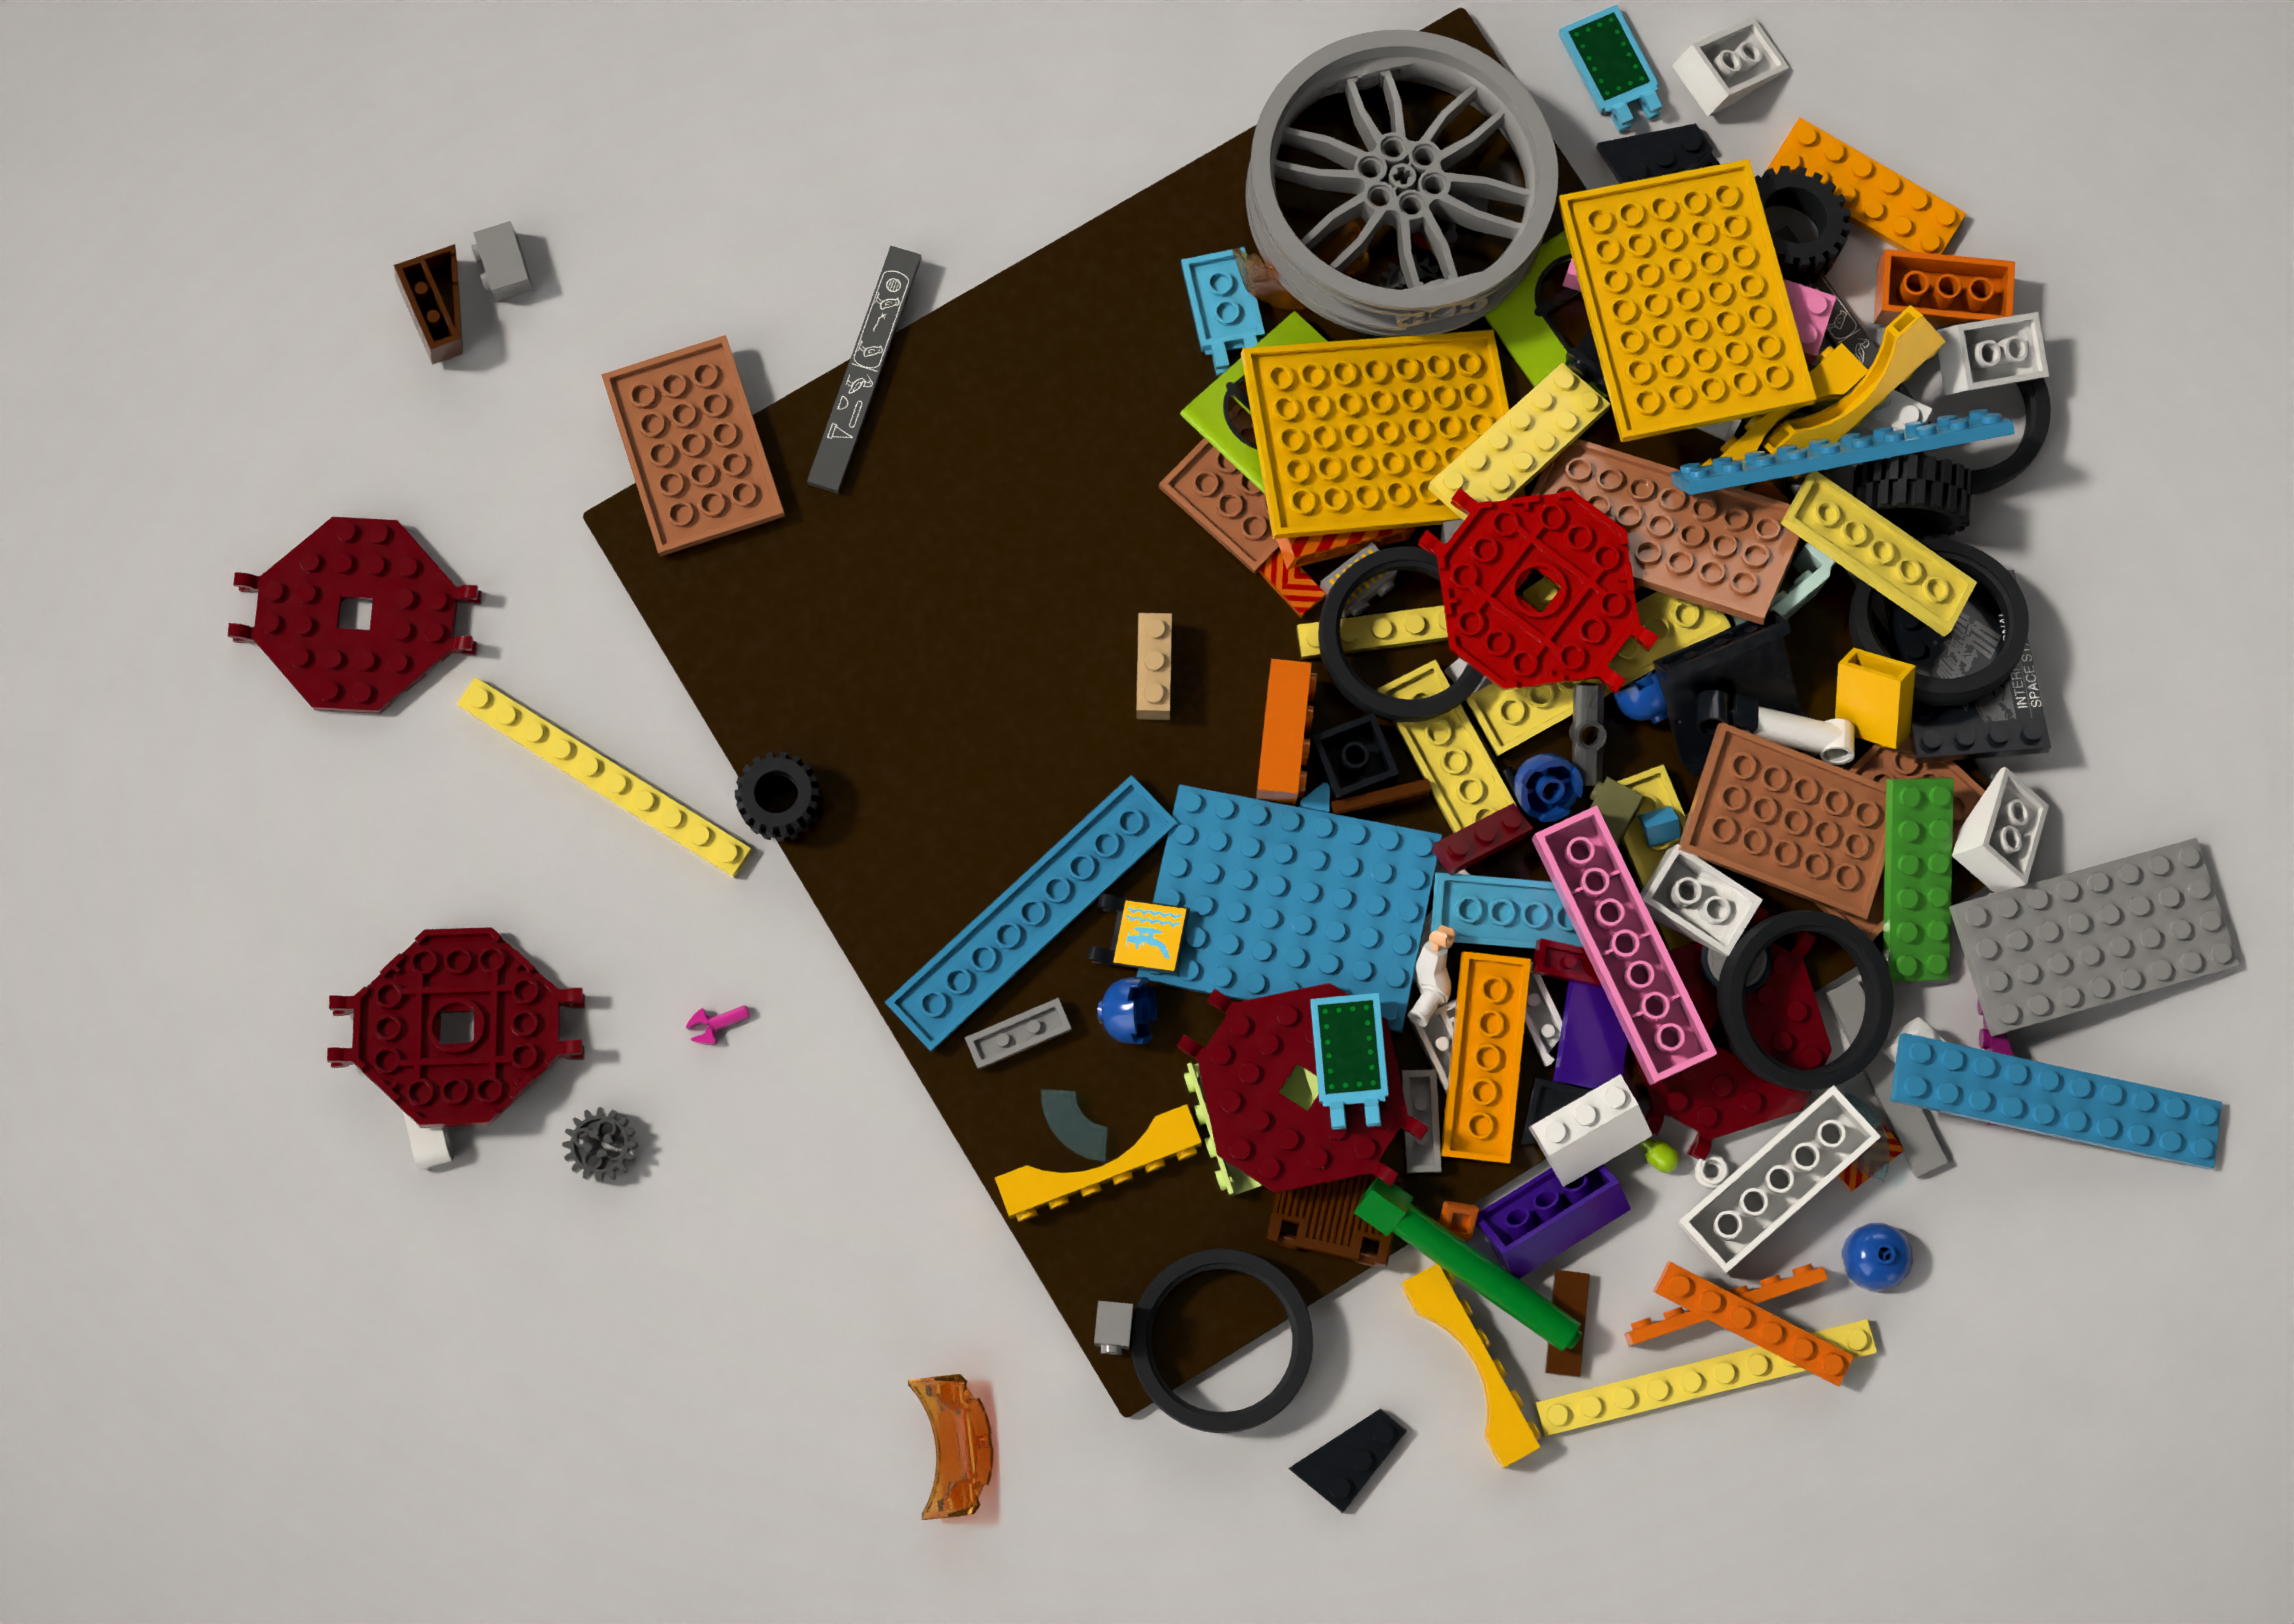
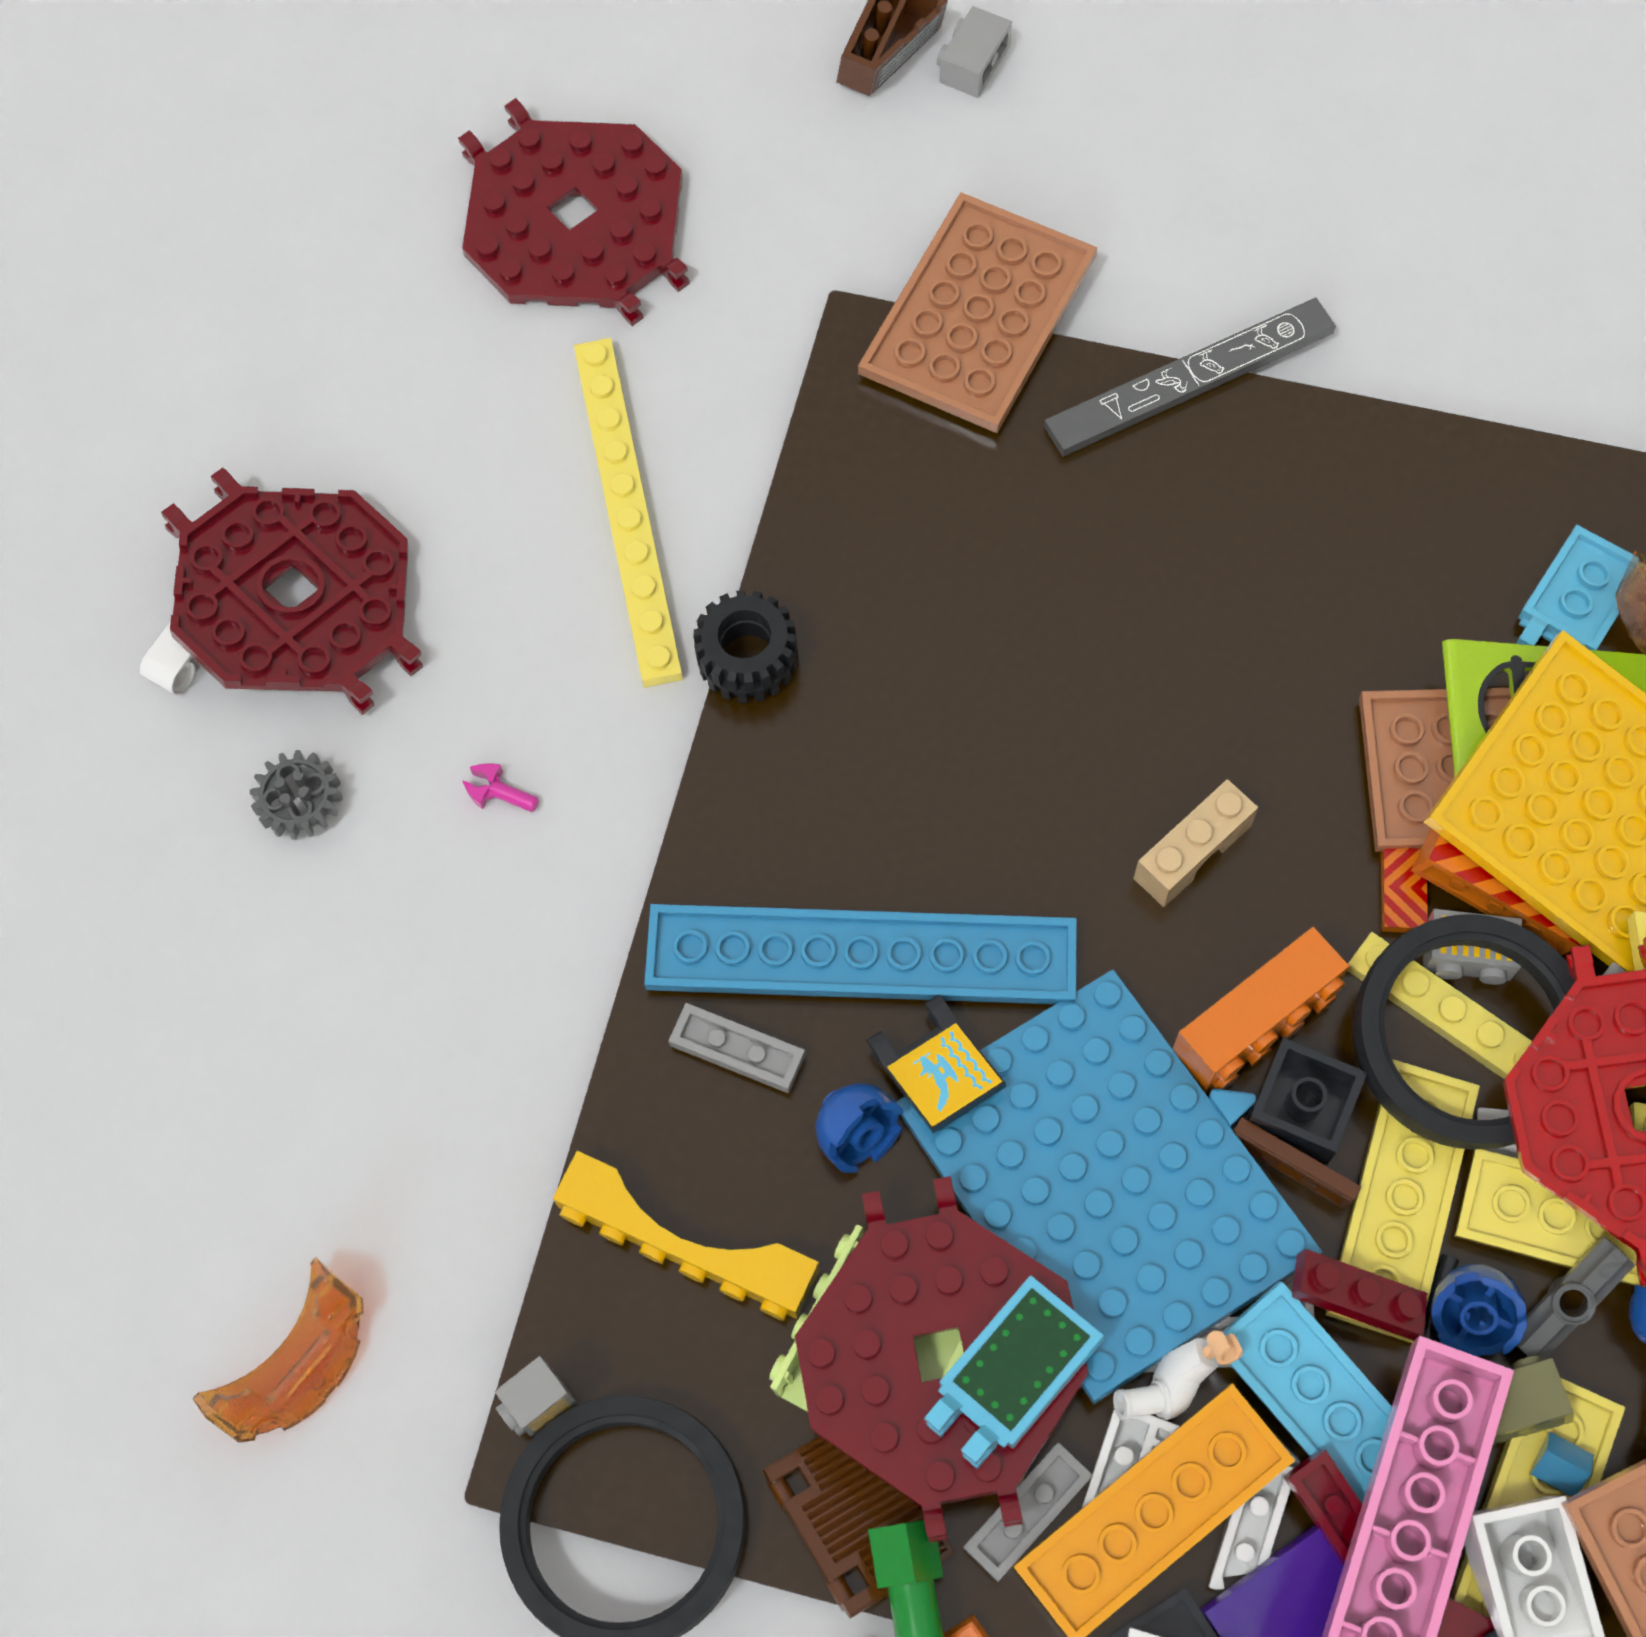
camera: 50 degrees right, 10 degrees down
(1072, 1126) = (698, 1180): clear light blue tile -> none

